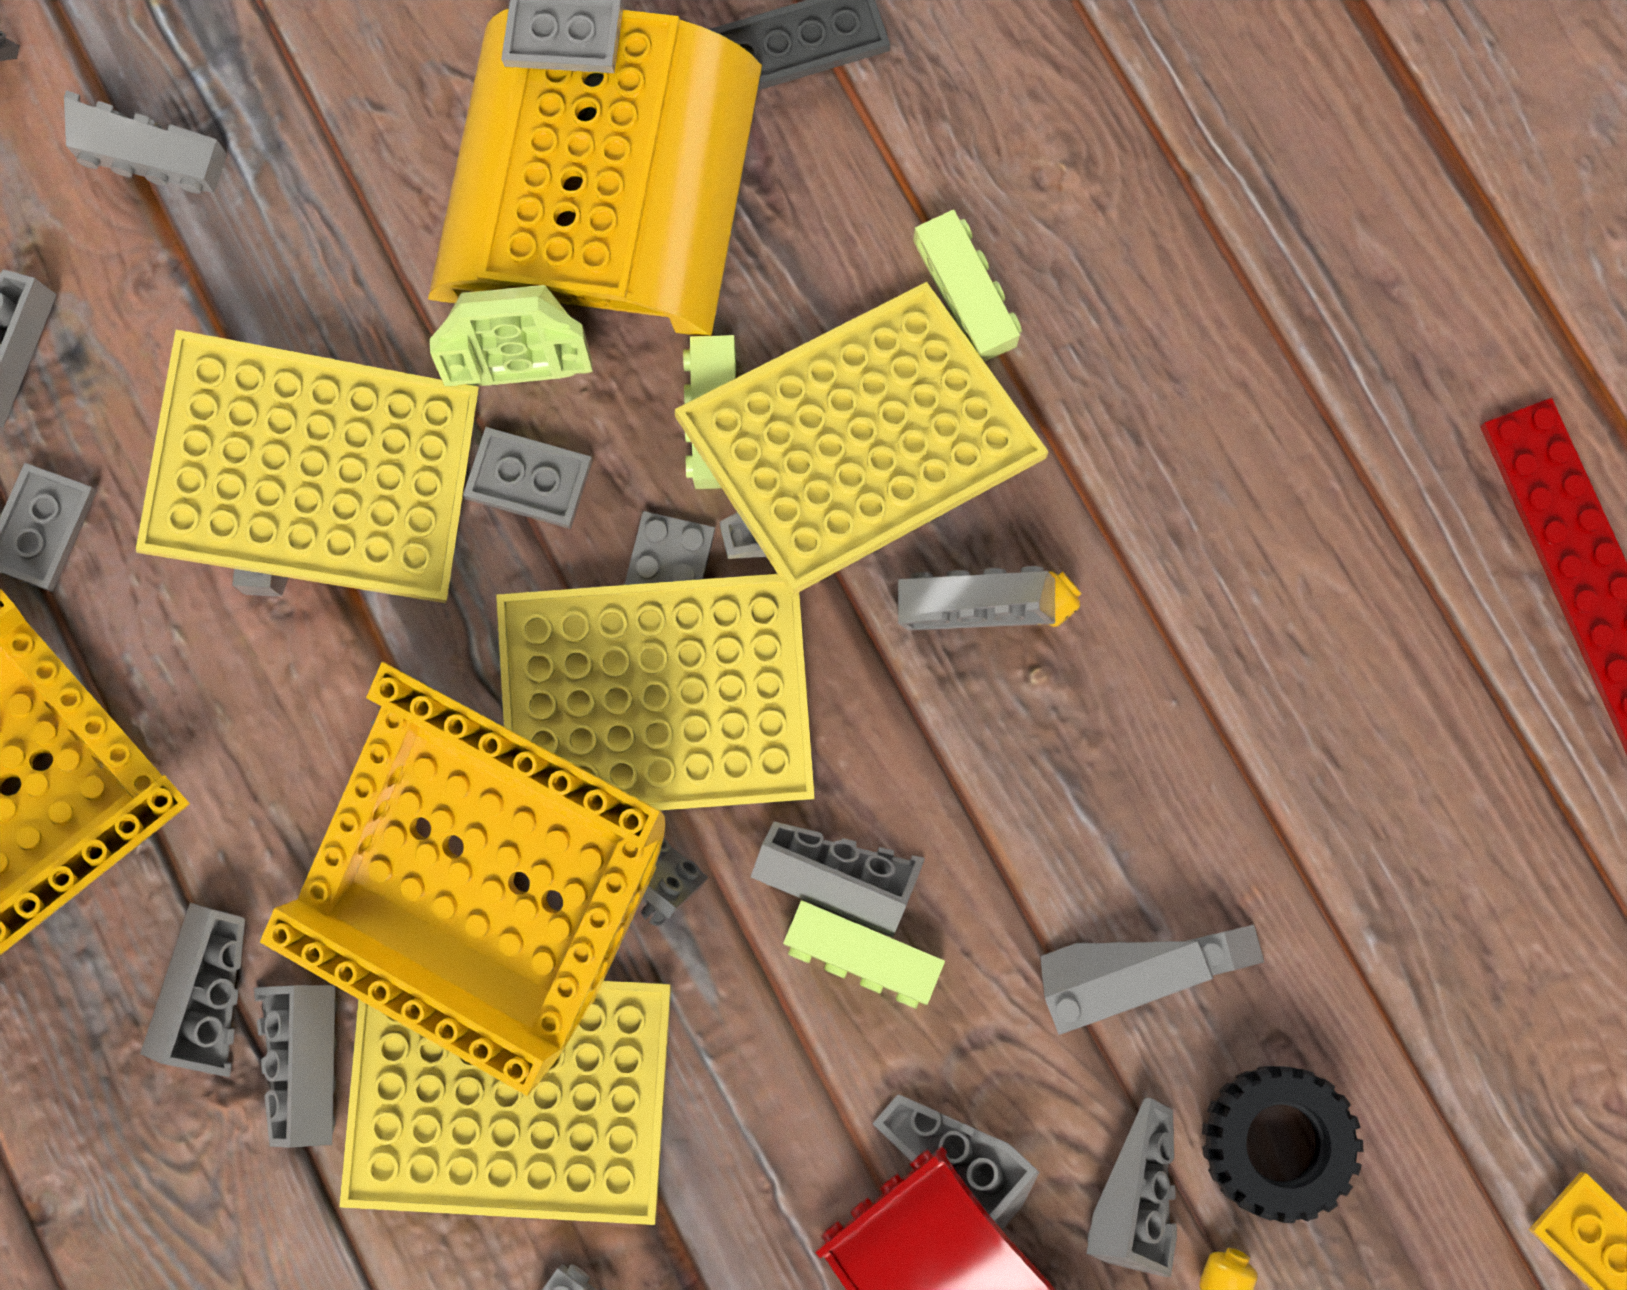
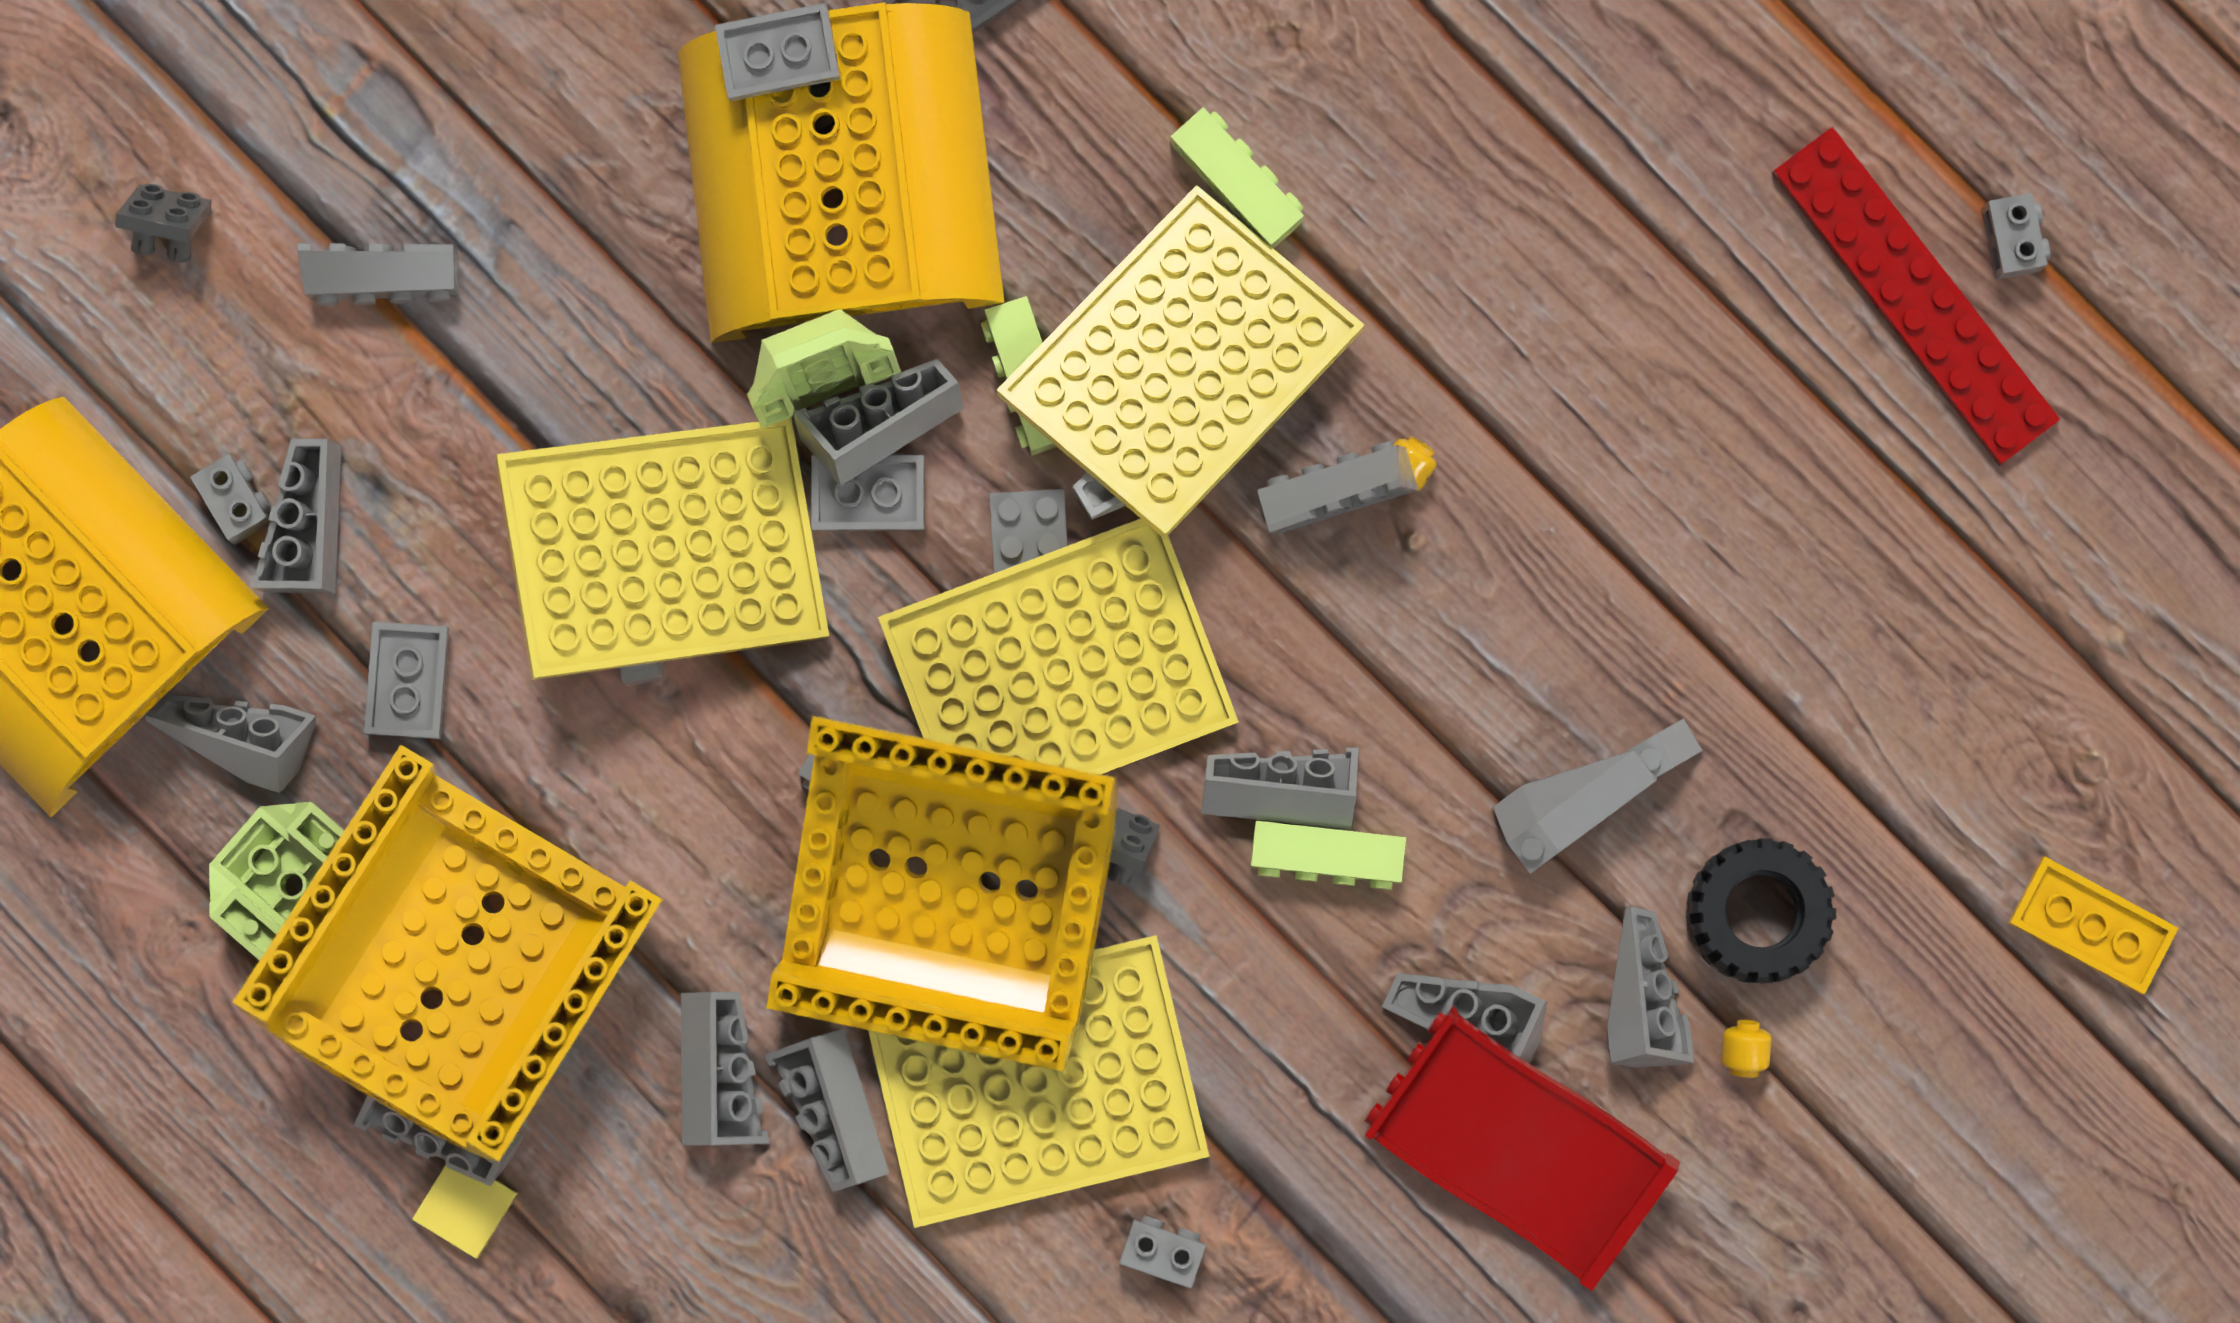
camera: 20 degrees left, 5 degrees up
(558, 410) = (879, 419): none -> light grey wedge

